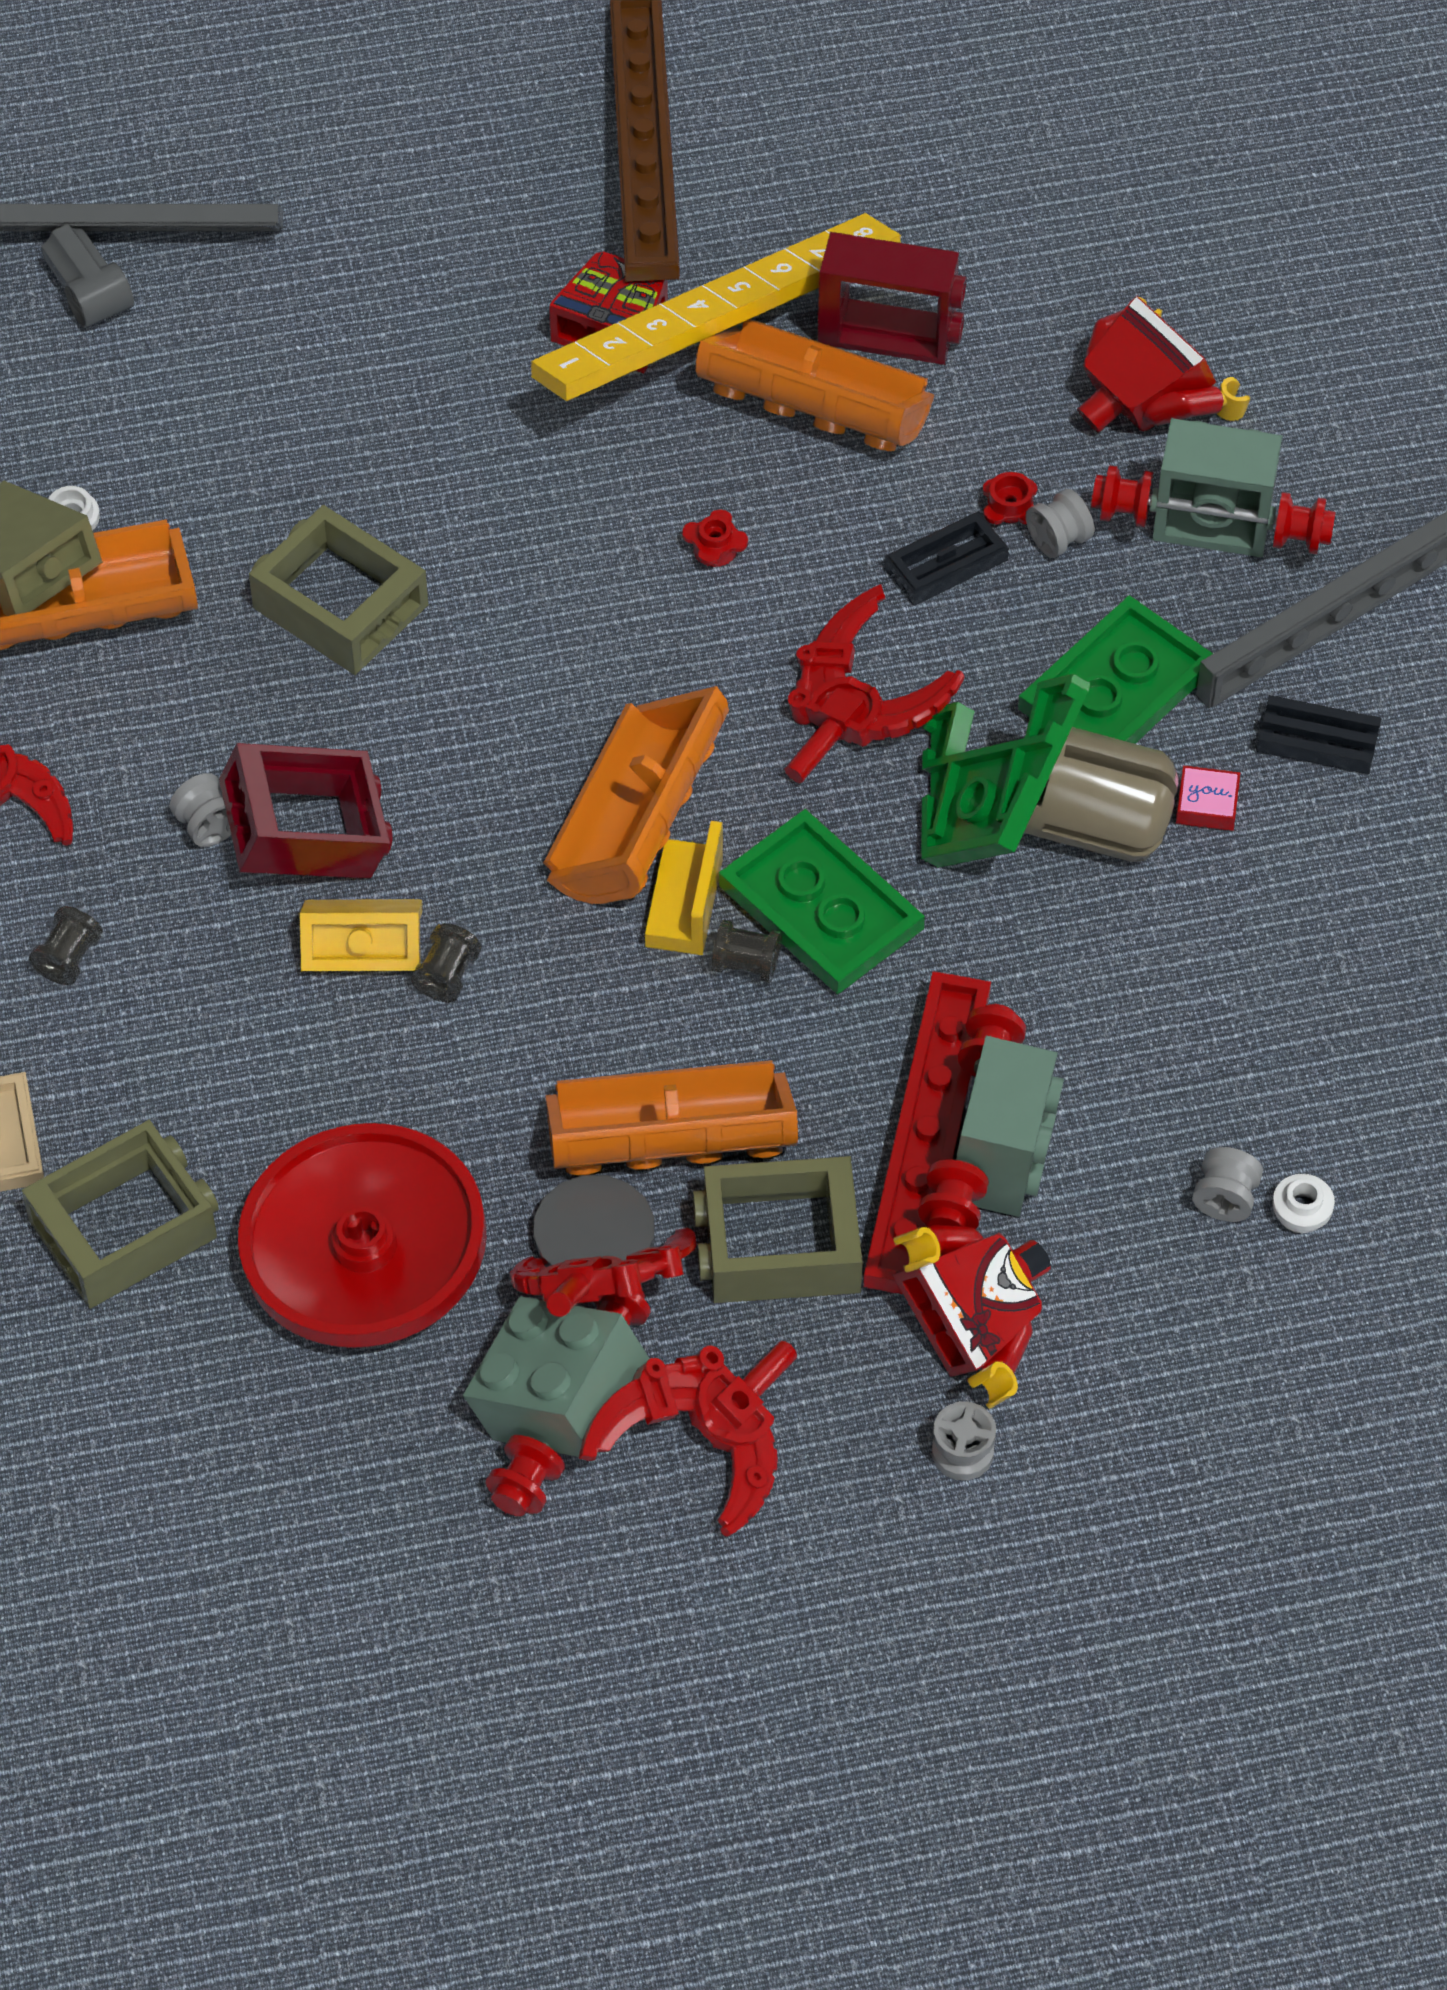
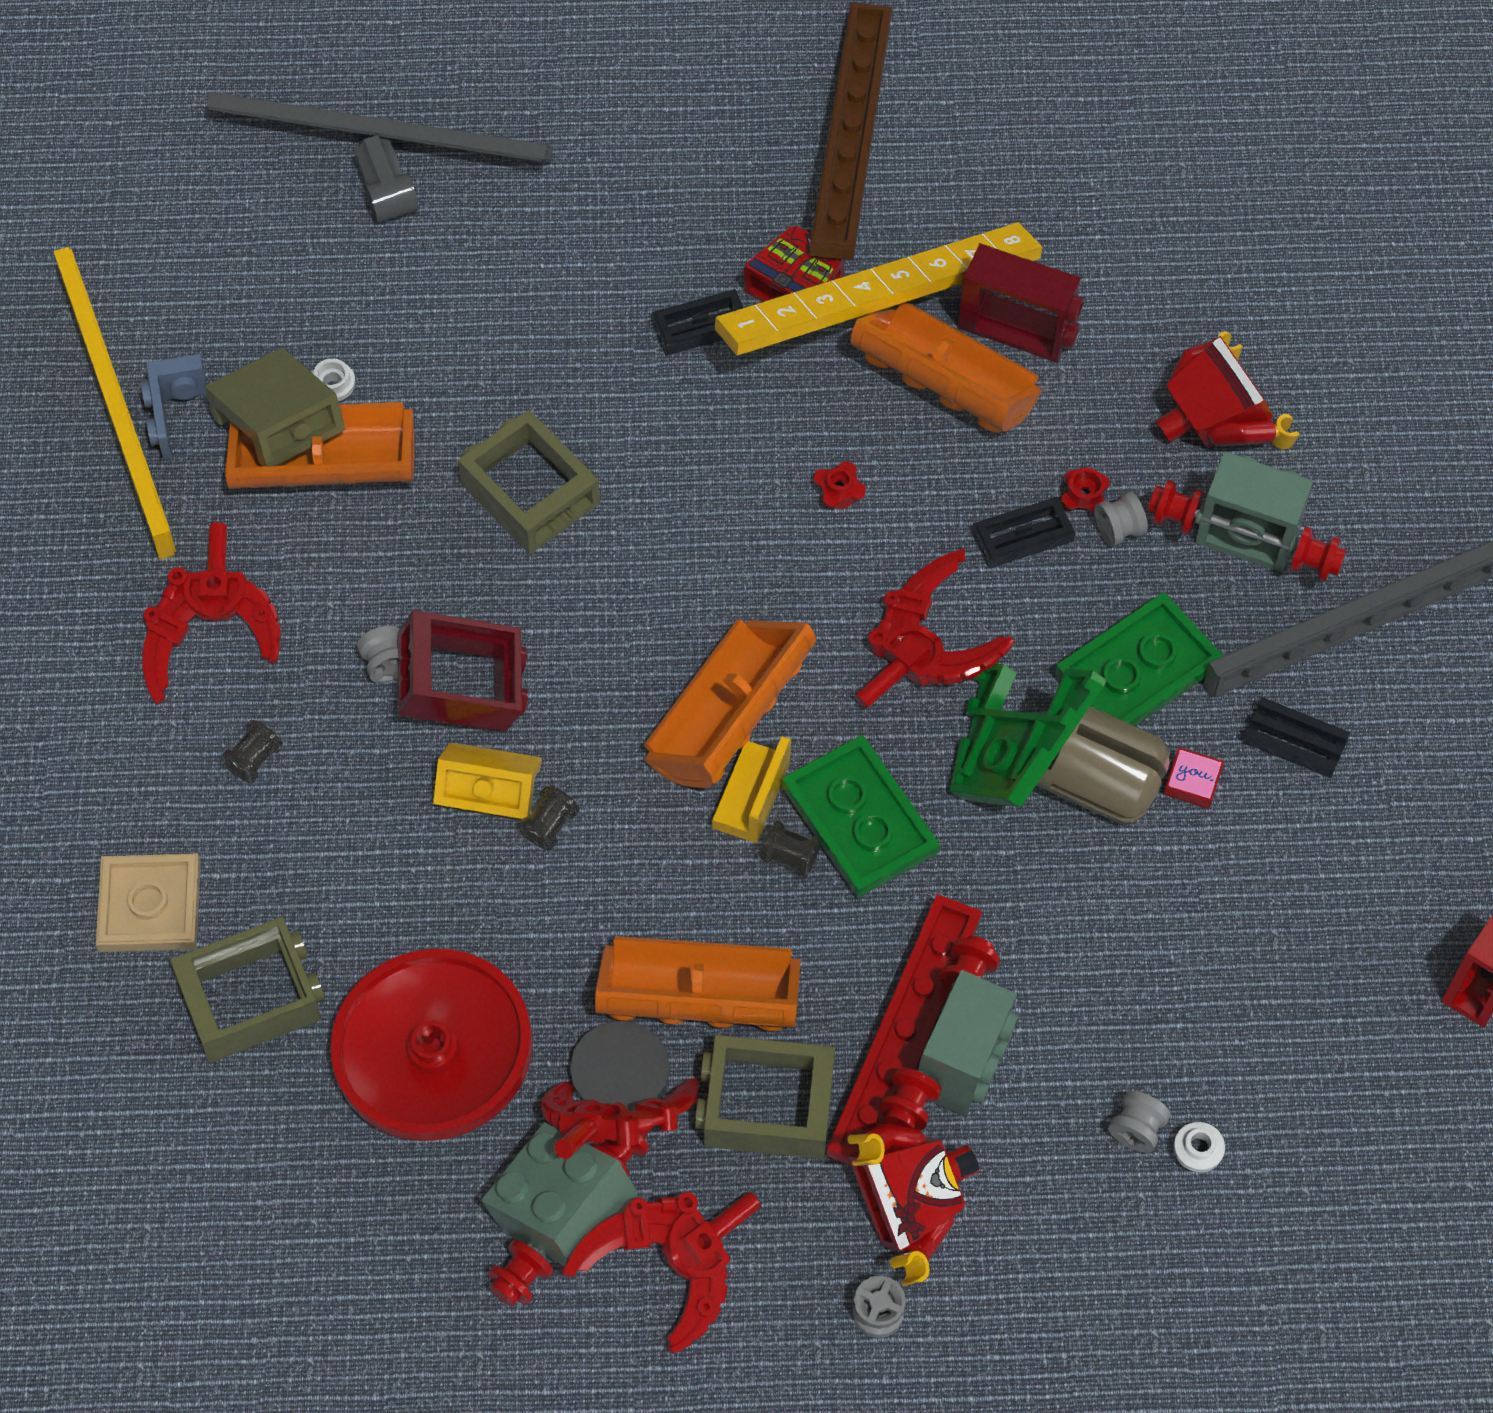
camera: 10 degrees right, 5 degrees up
(506, 393) = (700, 329): none -> black tile

